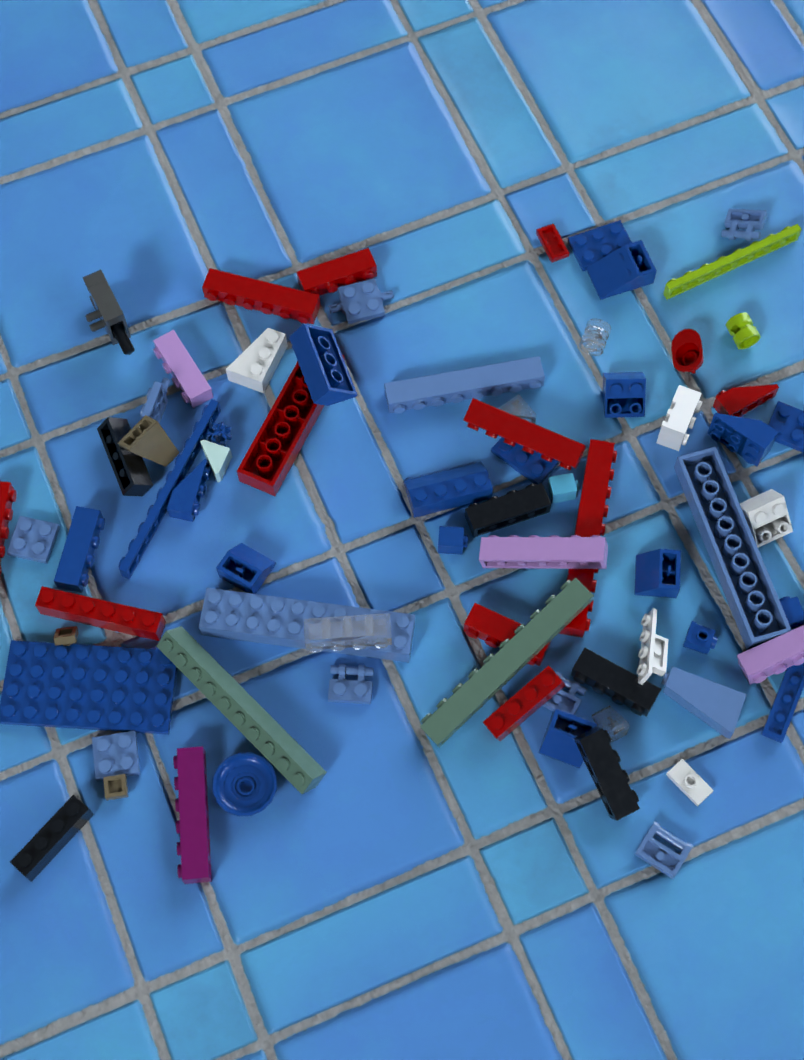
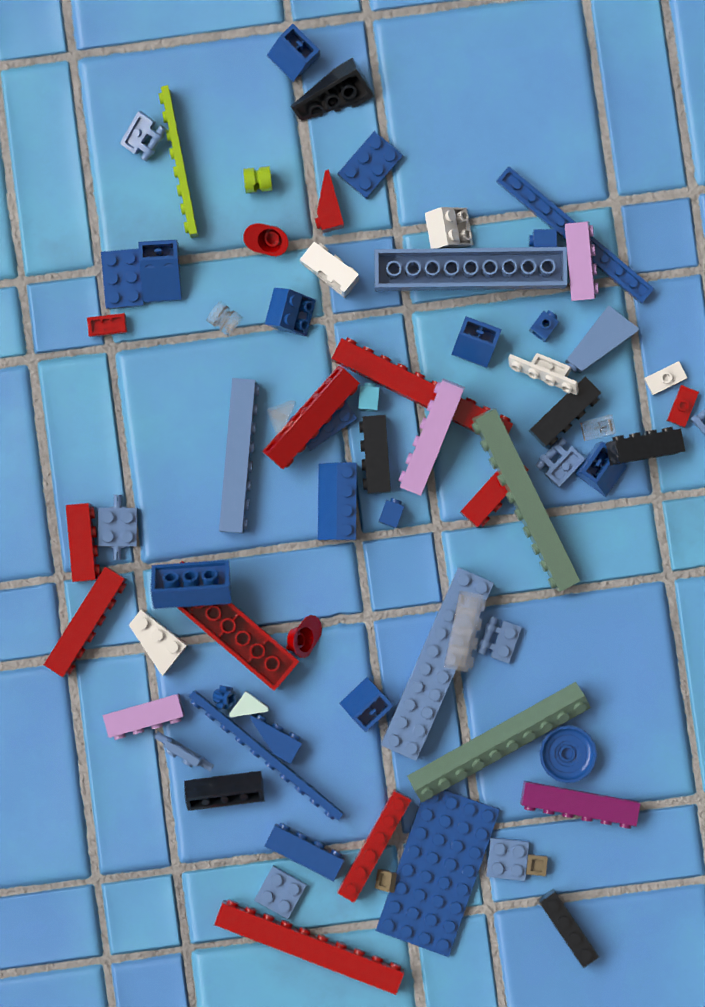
camera: 70 degrees left, 20 degrees up
(108, 311) = (69, 774): dark grey piece -> none
(150, 442) = (223, 766): dark tan slope -> none
(301, 491) = (305, 636): none -> red piece
(524, 703) = (564, 496): red brick -> none
(665, 809) = (682, 406): none -> red plate
(743, 436) = (374, 213): blue slope -> none

